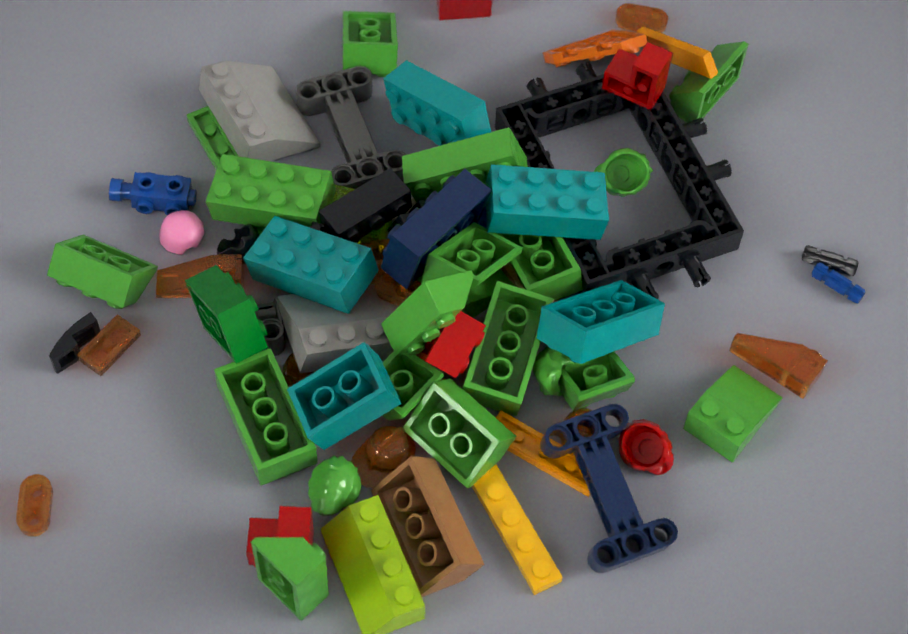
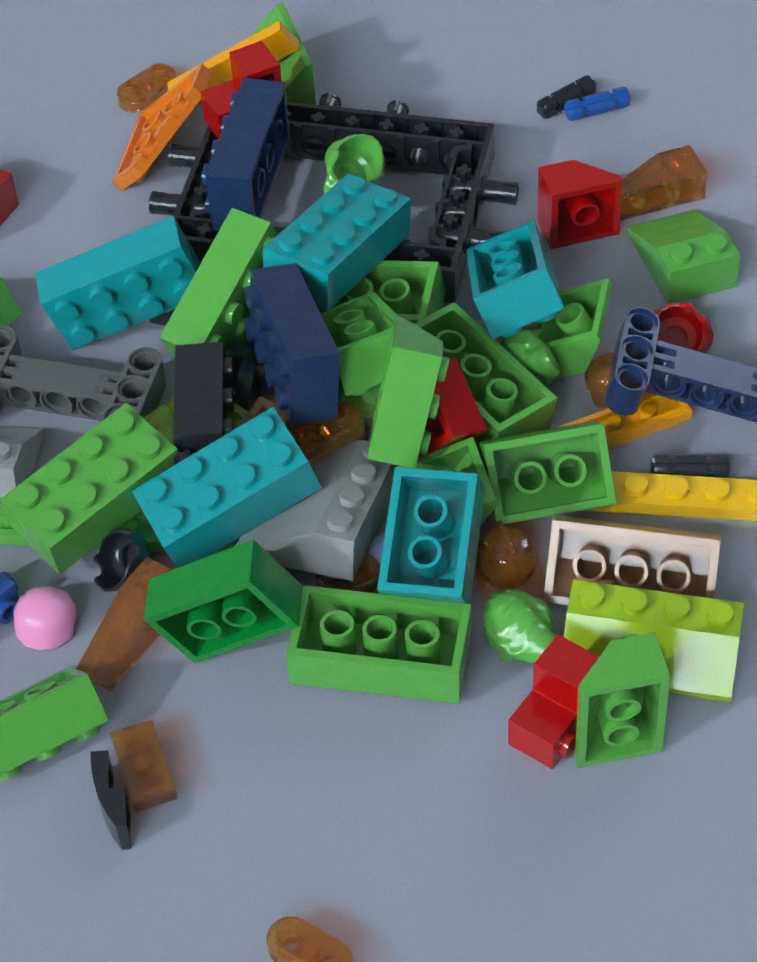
camera: 50 degrees left, 10 degrees down
(539, 517) = (691, 465): none -> black axle
(582, 108) = (248, 151): none -> dark blue brick
(713, 320) = (577, 203): none -> red slope

